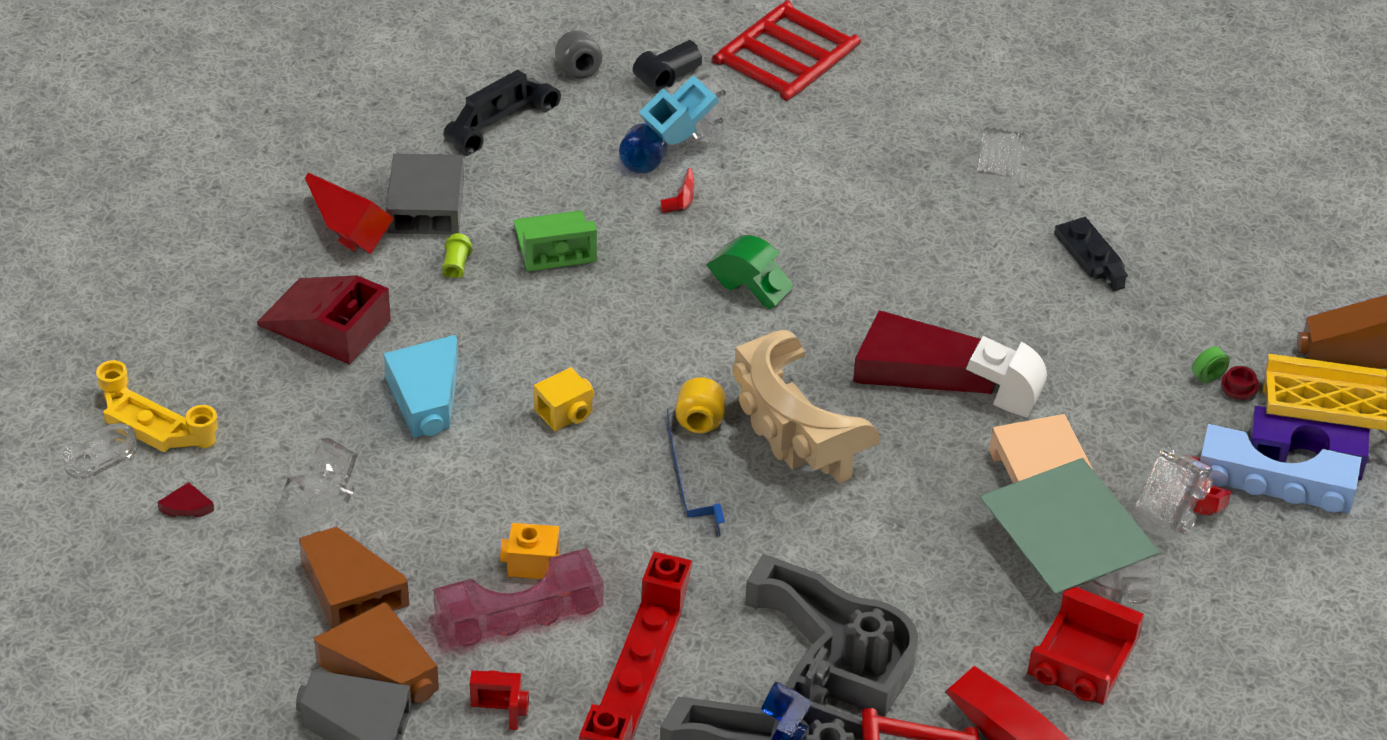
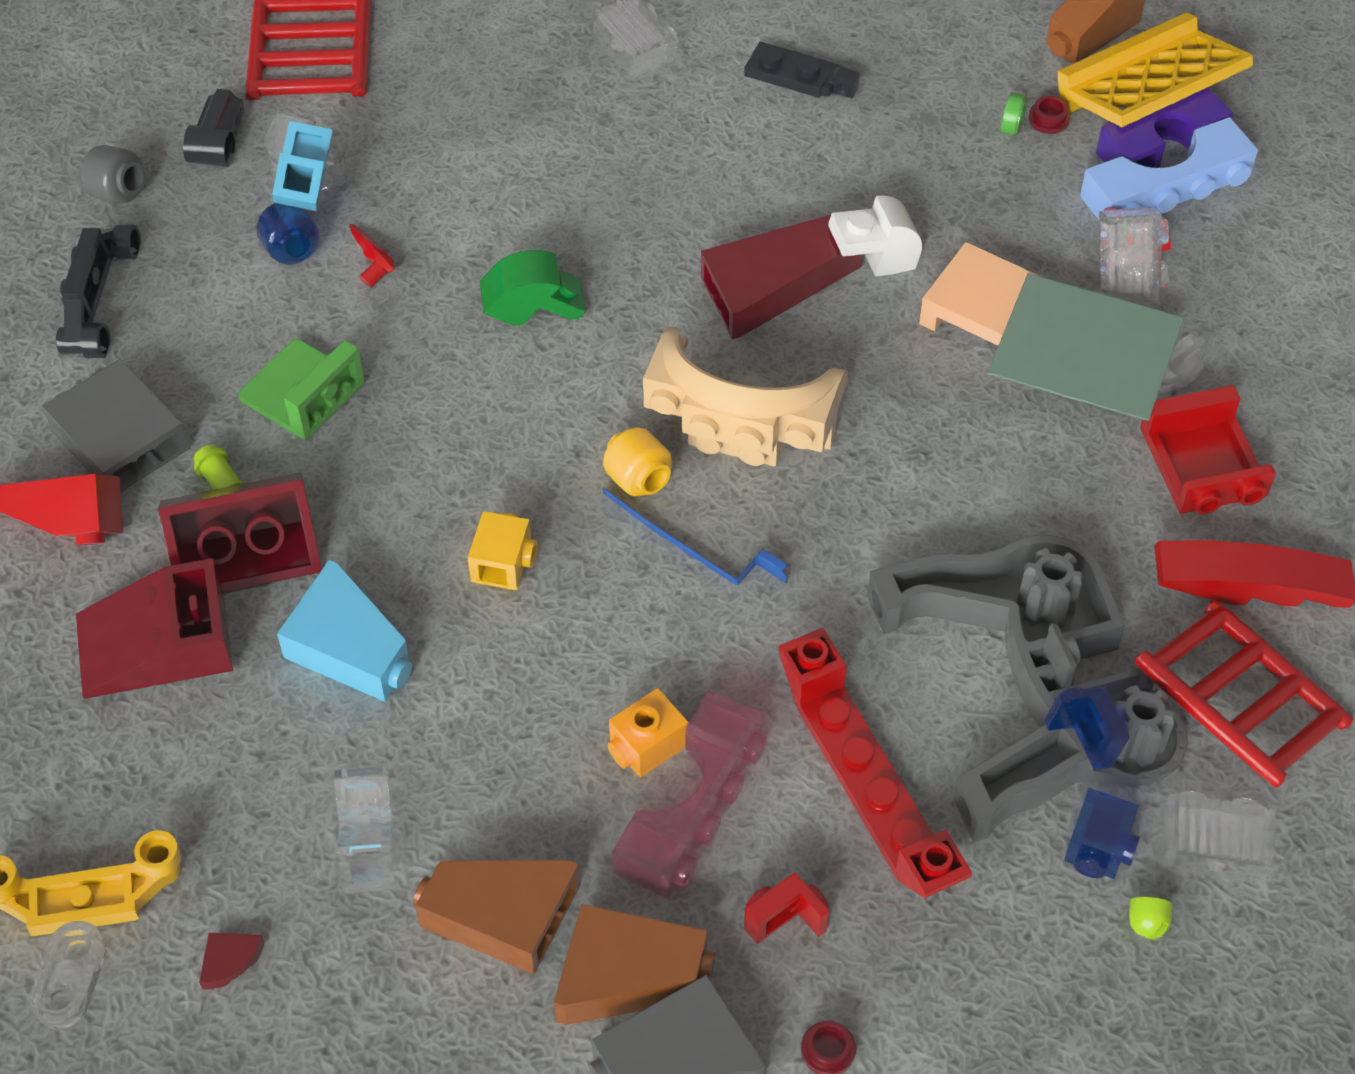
camera: 40 degrees left, 10 degrees up
(432, 293) = (249, 529): none -> dark red slope

